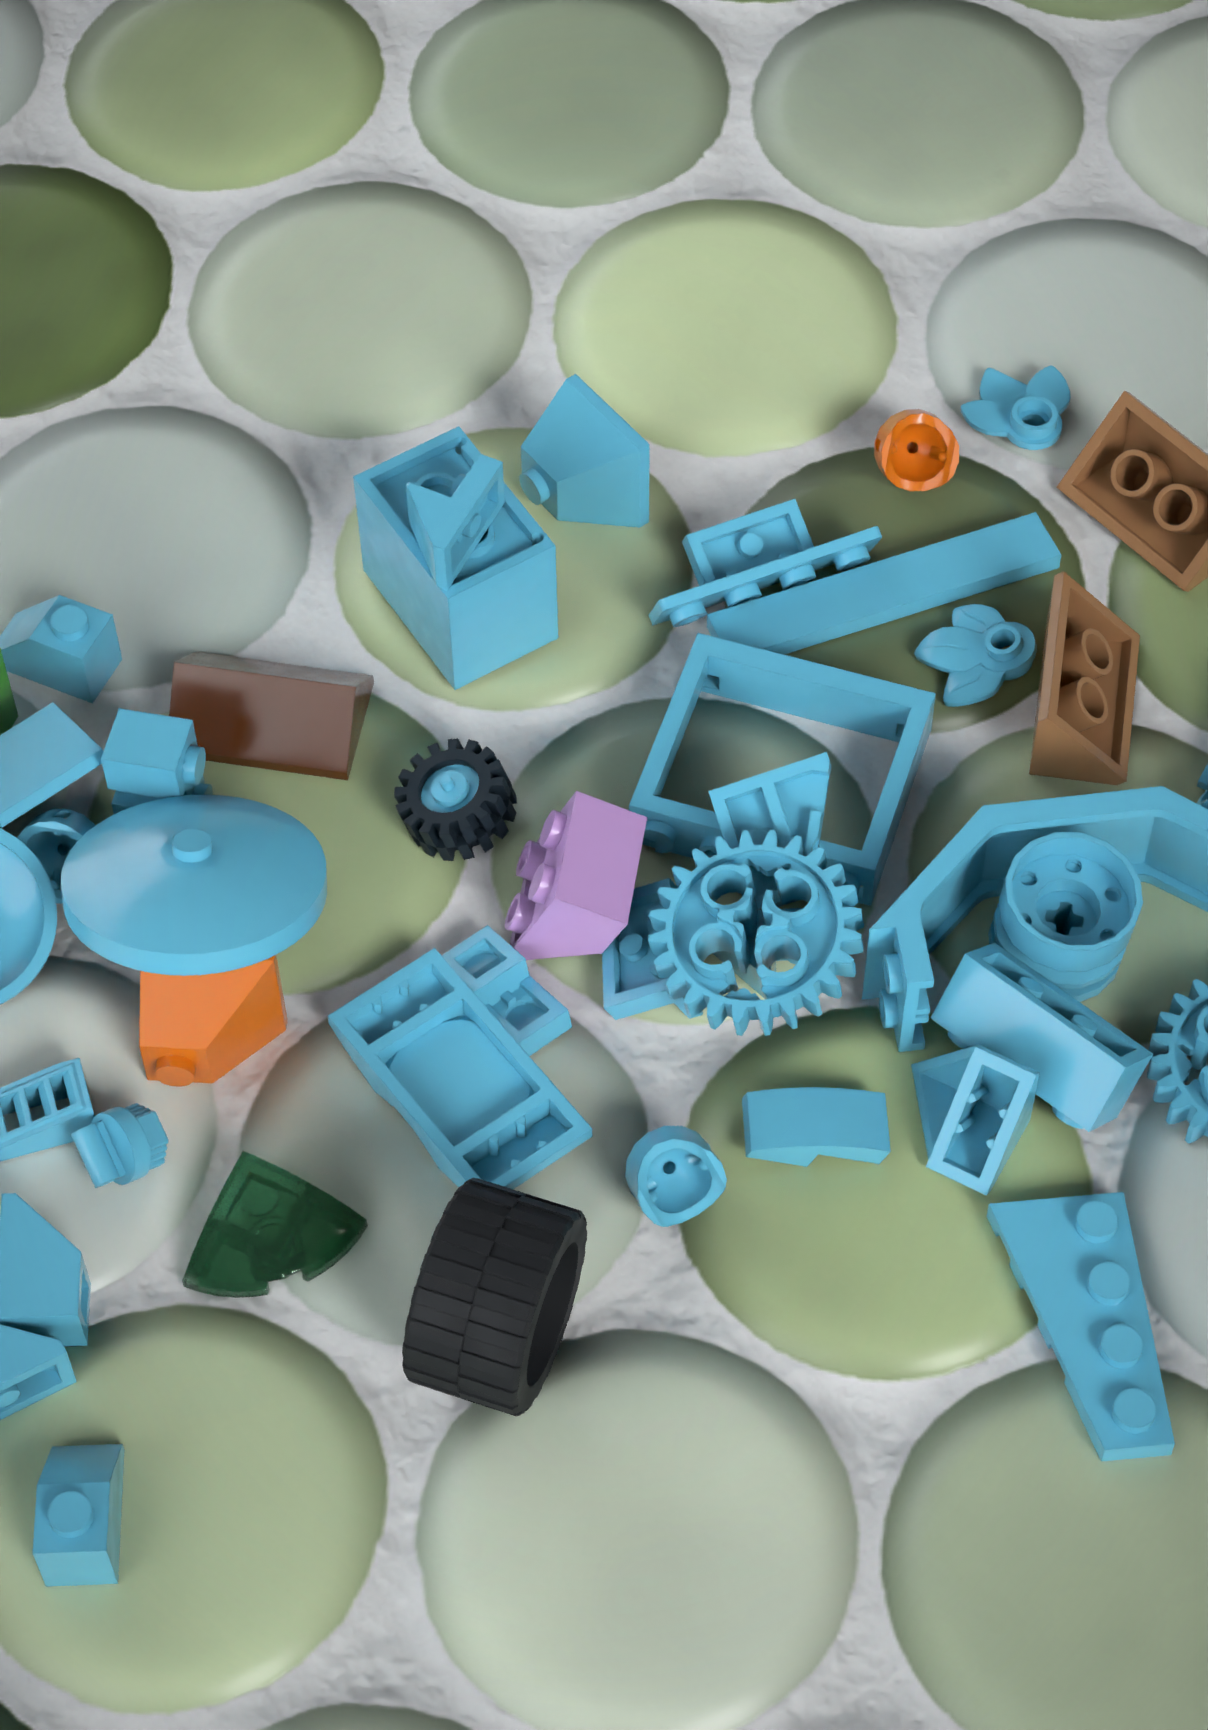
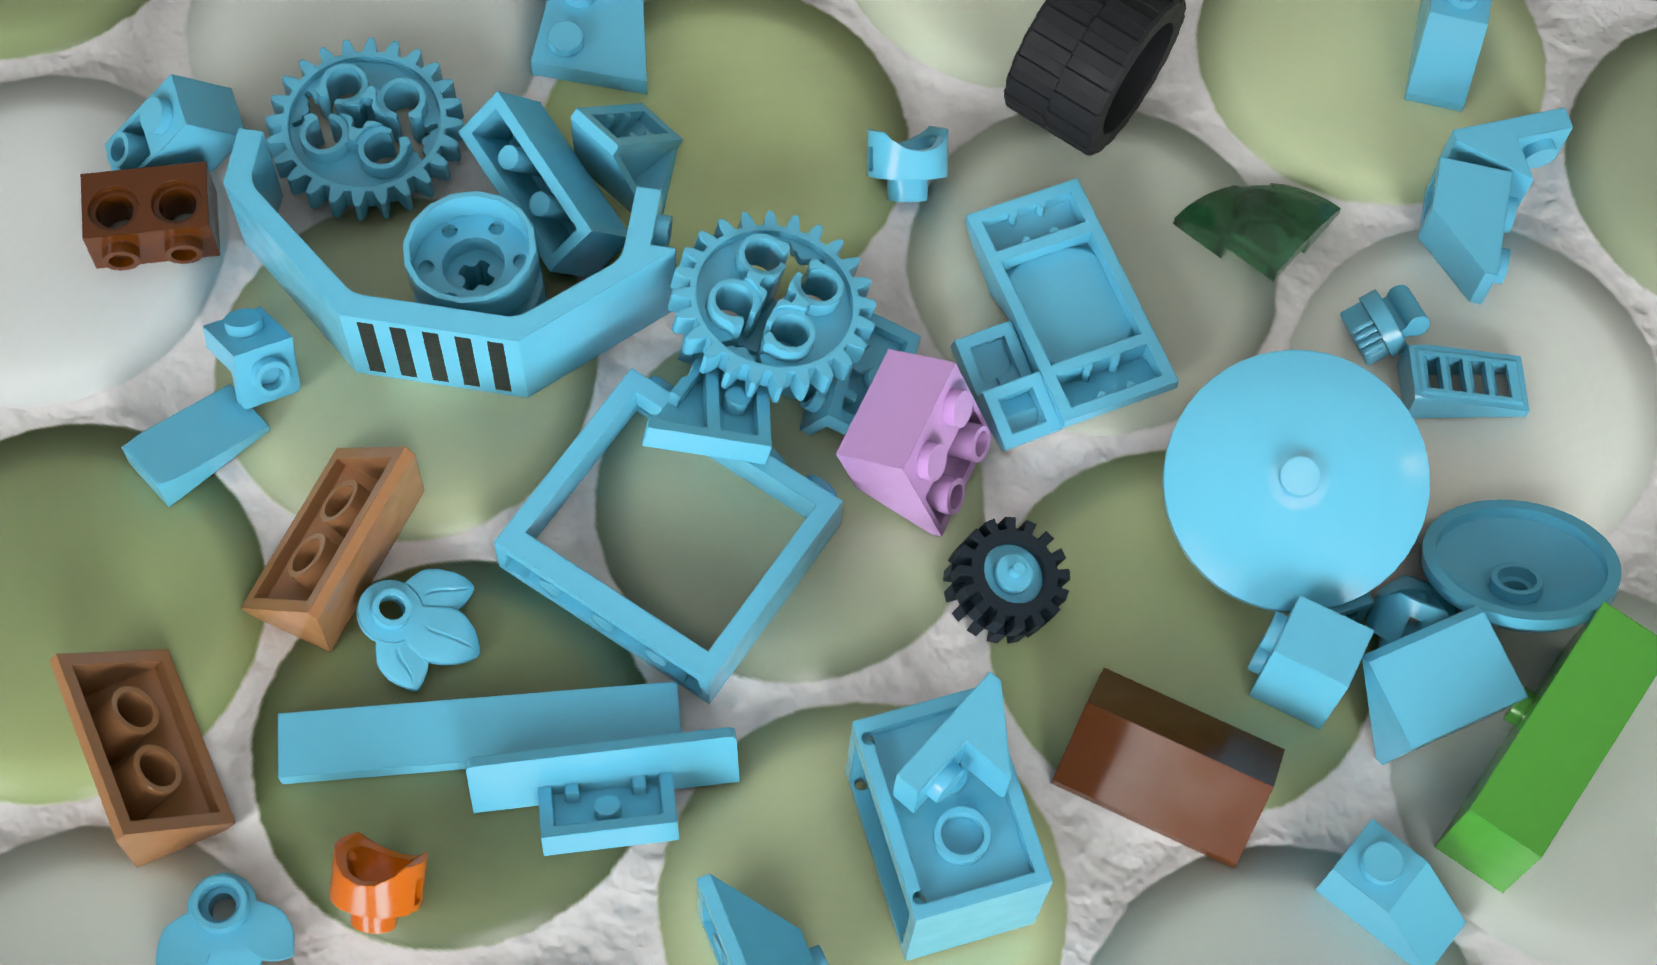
camera: 170 degrees left, 10 degrees up
(811, 1121) = (766, 182): medium azure slope -> none

